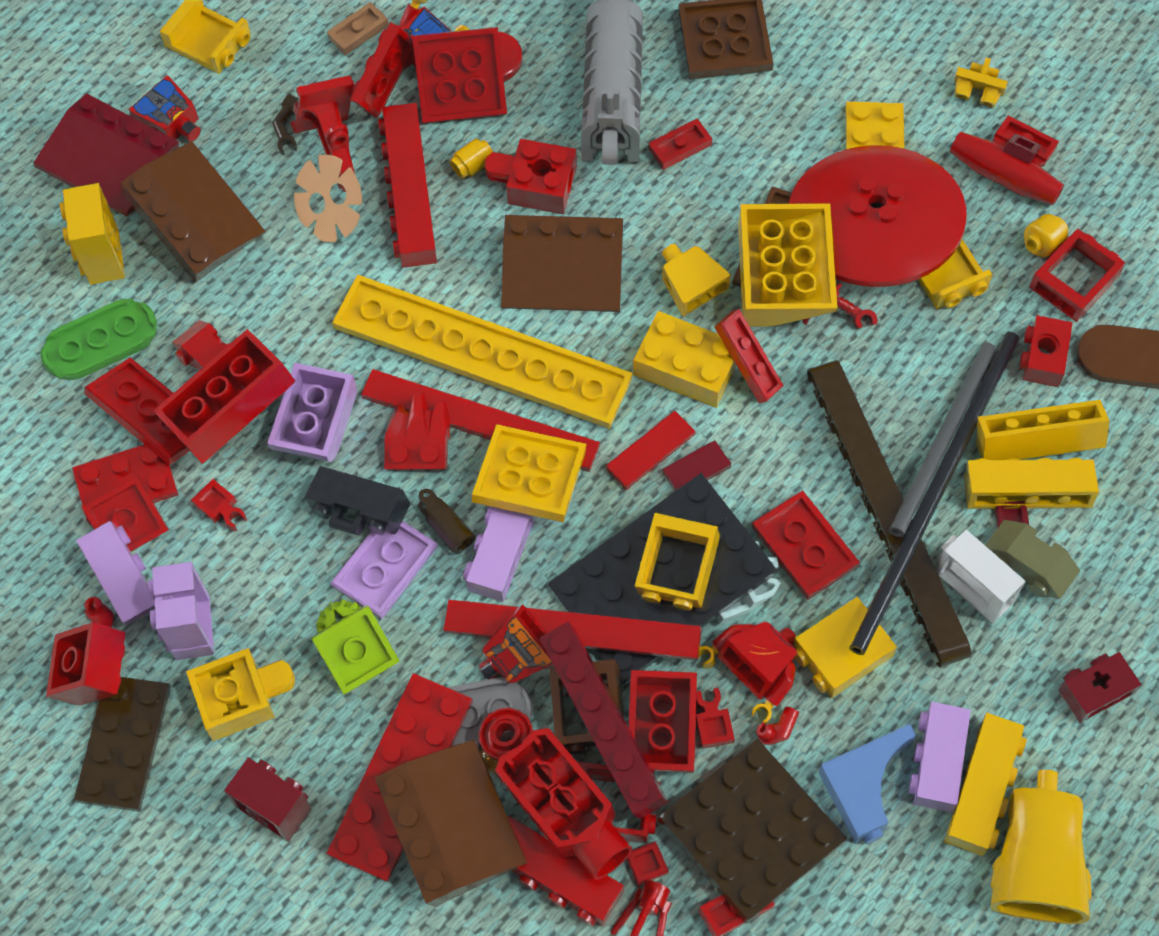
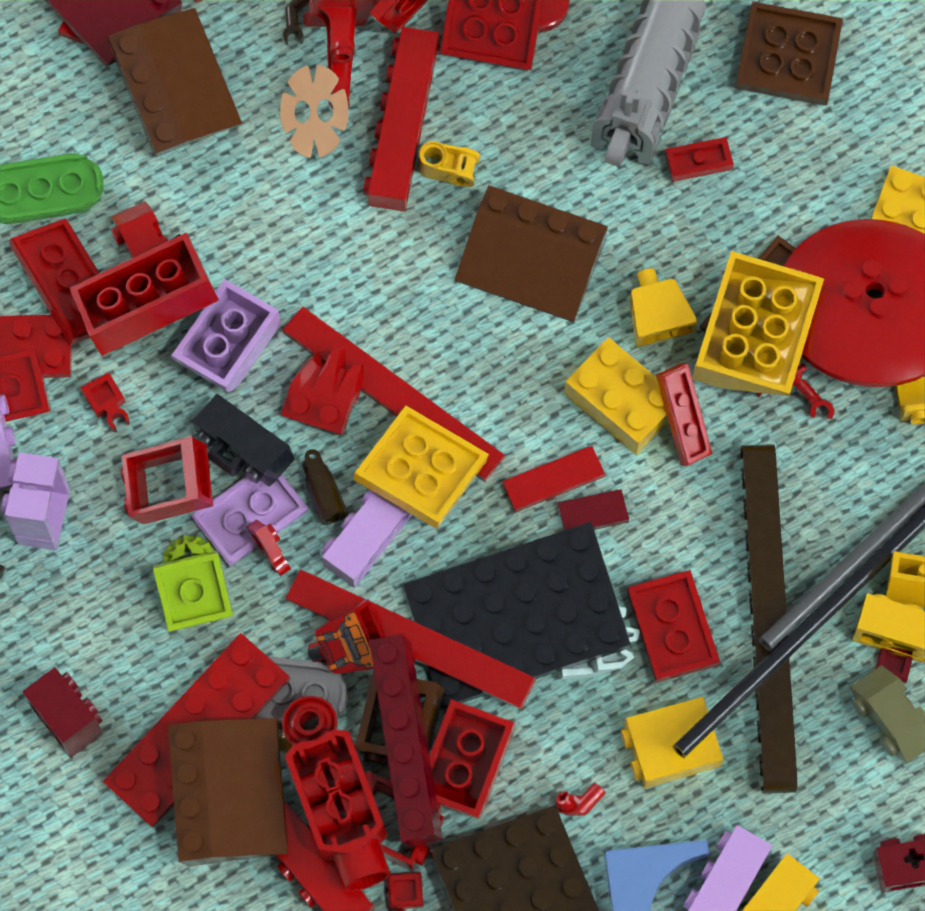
camera: 15 degrees right, 5 degrees up
(92, 234) = (65, 79): yellow brick -> none
(241, 683) = (64, 596): yellow brick -> none
(325, 542) = (196, 478): none -> red window
(409, 582) = (266, 540): none -> red plate
(463, 210) = (450, 164): none -> yellow piece
(470, 158) = (477, 109): yellow brick -> none
(483, 351) = (420, 322): yellow plate -> none
(525, 181) = (527, 156): red brick -> none
(684, 530) = (533, 565): yellow window -> none
(714, 724) = (517, 777): red plate -> none
(759, 659) = (583, 727): red torso -> none
(979, 575) = (832, 714): white window -> none

